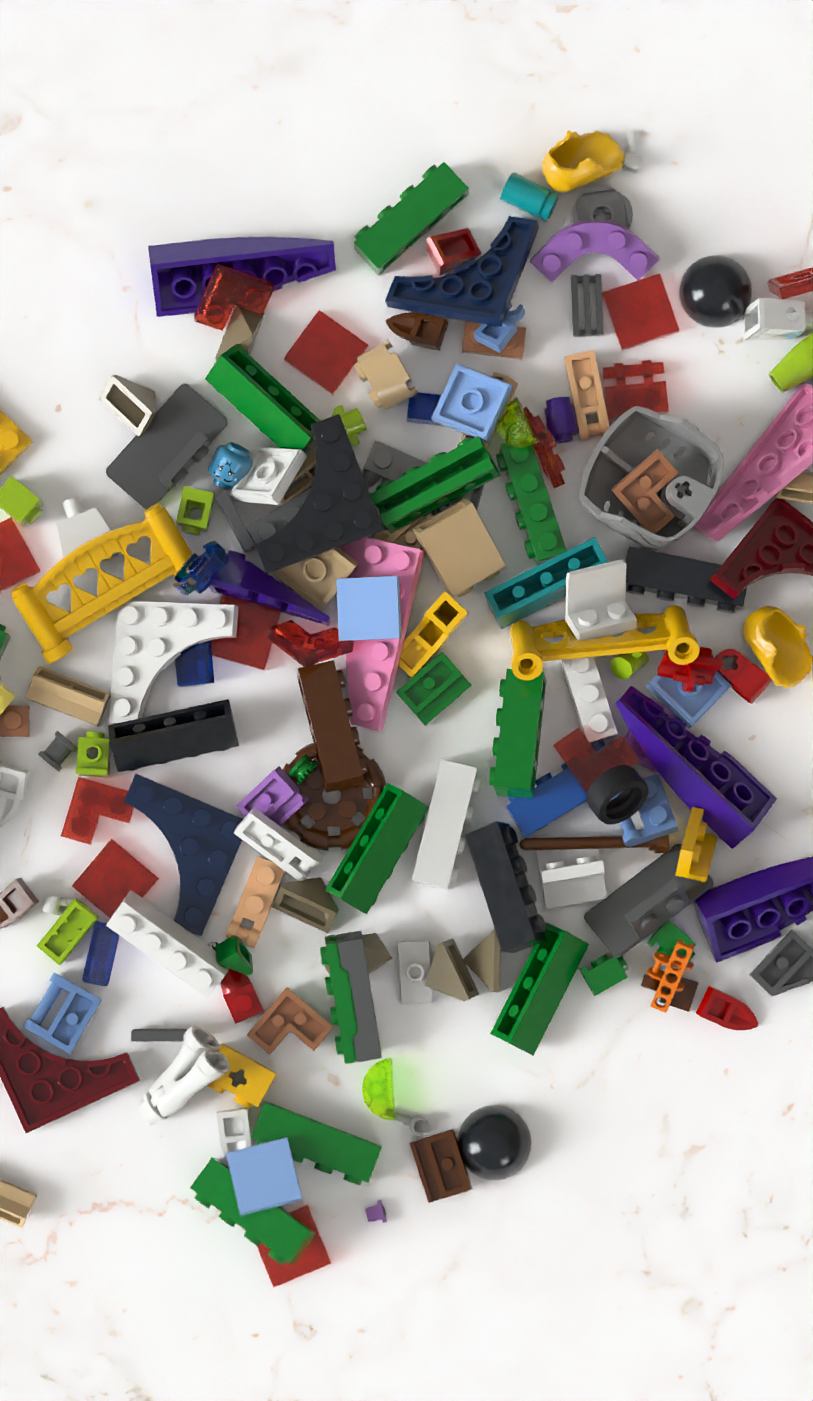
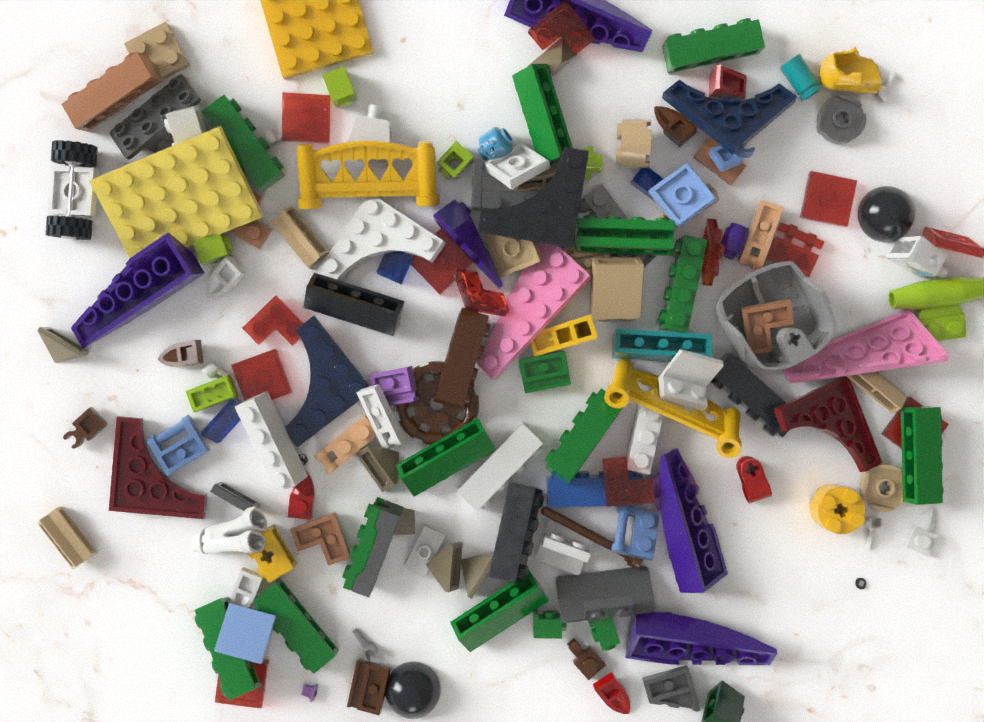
camera: 30 degrees right, 5 degrees up
(58, 751) = (272, 270): dark grey bush -> none
(101, 764) = (293, 296): lime brick -> none
(130, 403) = (453, 63): dark tan slope -> none
(168, 447) = (460, 107): dark grey bracket -> none
(197, 570) = (432, 202): clear blue plate -> none
(234, 955) = (311, 474): green slope -> none
(303, 768) = (425, 376): green bush -> none
(325, 352) = (602, 105): clear red tile -> none
(369, 608) = (532, 295): light blue tile -> none
(379, 1090) = (356, 615): clear neon green plate -> none
(515, 426) = (702, 228): clear neon green plate -> none
(586, 280) = (804, 156): dark grey tile -> none
(592, 237) = (828, 129): medium lavender plate -> none
(610, 784) = (626, 517): black tyre -> none
(627, 664) = (680, 431): lime piece -> none
(666, 980) = (588, 654): orange piece -> none
(688, 705) = (712, 471): light blue tile -> none
(696, 848) = (656, 580): yellow bracket -> none
(698, 672) = (719, 463): red hips -> none
(778, 645) = (789, 475): yellow piece -> none

